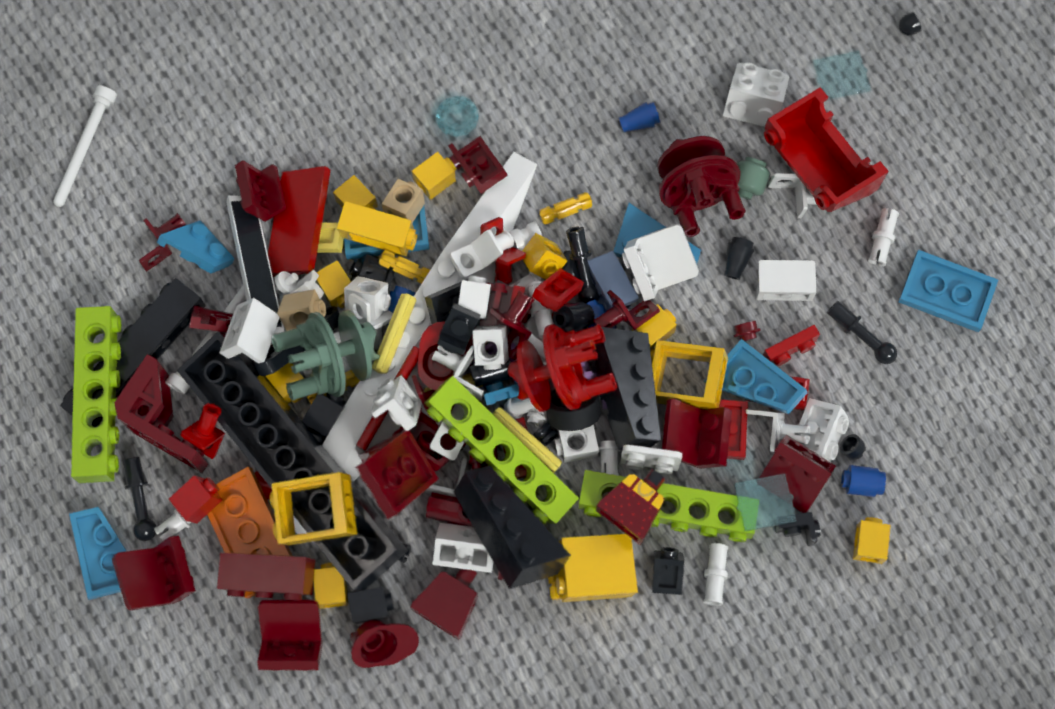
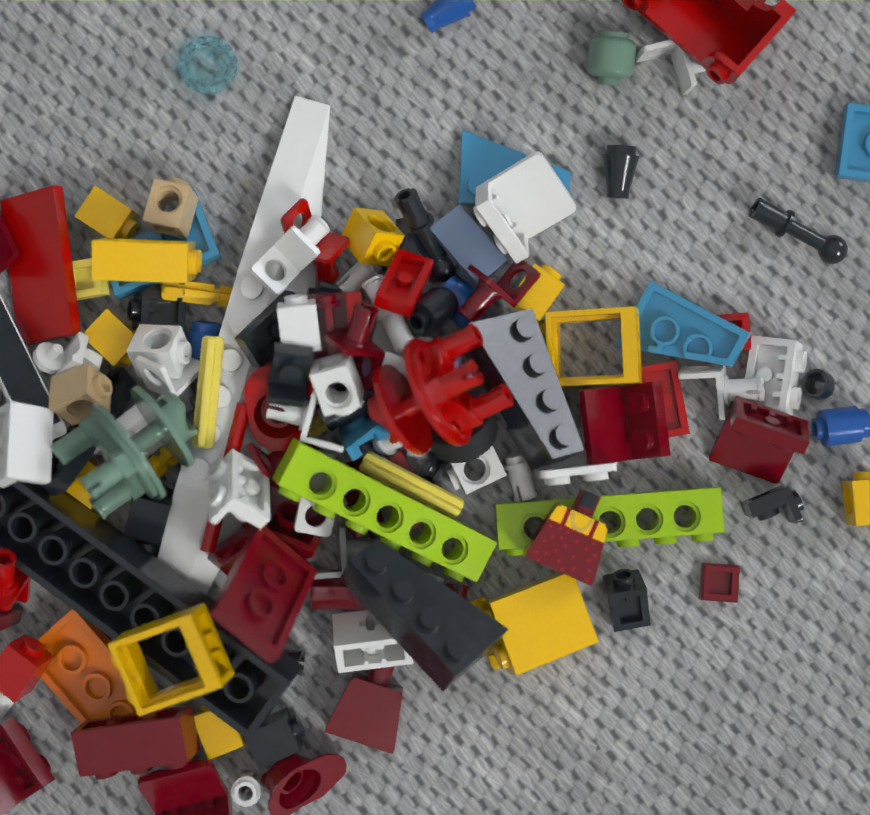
camera: 15 degrees left, 15 degrees up
(333, 632) = (238, 789): none -> white pin
(434, 175) = (201, 156): yellow brick -> none
(478, 163) = (254, 128): dark red bracket -> none
(523, 236) = (338, 213): white wheel -> none
(565, 208) = (382, 157): yellow axle -> none
(698, 177) = (547, 81): dark red piece -> none
(715, 574) = (686, 589): white pin -> none
(743, 577) = (719, 582): none -> dark red tile
(746, 331) = (653, 266): dark red plate -> none
(765, 502) = (729, 490): clear light blue piece -> none
(786, 280) = (690, 186): white panel -> none
(802, 342) = (727, 264): red plate -> none
(883, 237) = (799, 95): white pin -> none

